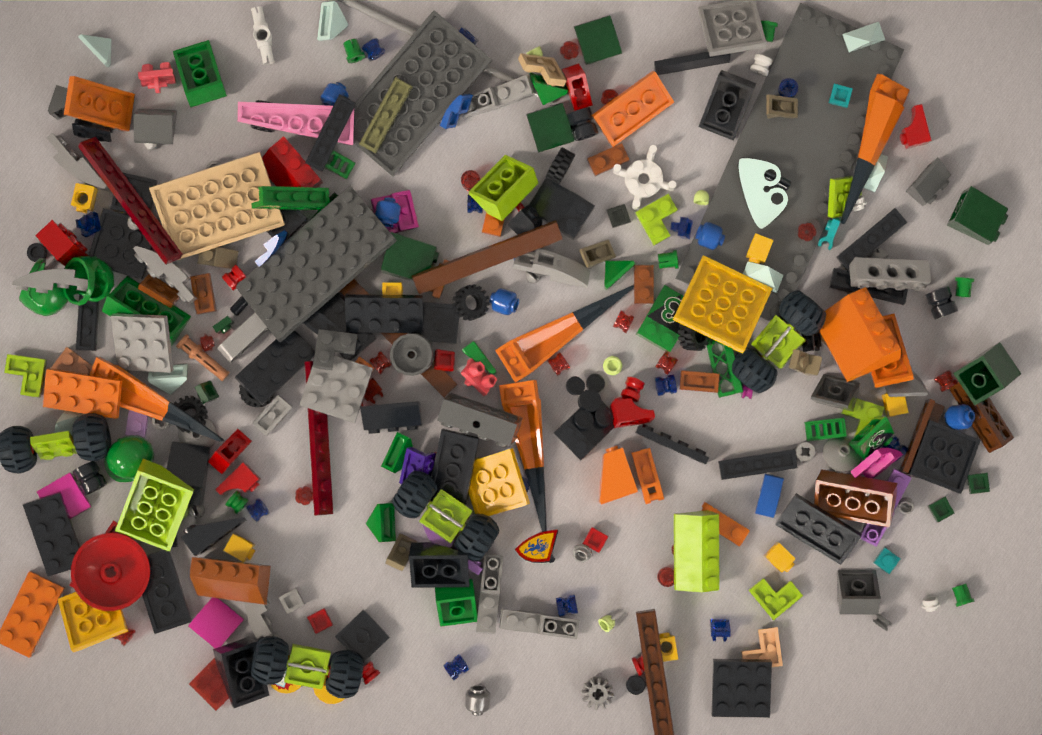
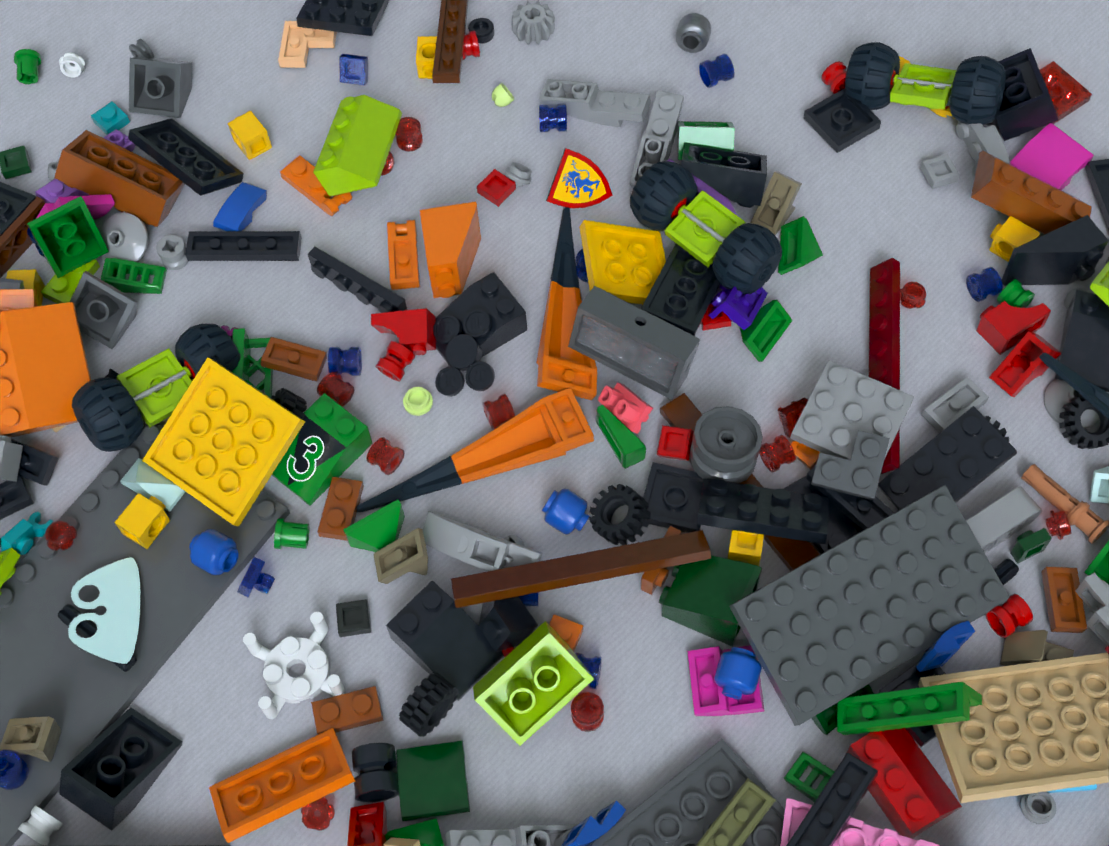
camera: 165 degrees left, 25 degrees down
(206, 392) = (1060, 450): dark green plate -> none
(320, 620) = (900, 147): red tile -> none
(391, 417) = (768, 376): black slope -> none
(652, 216) = (294, 611): lime plate -> none
(701, 197) = (211, 623): yellowish green hinge -> none
(773, 602) = (271, 89): lime plate -> none
(805, 363) = (124, 351): dark tan slope -> none

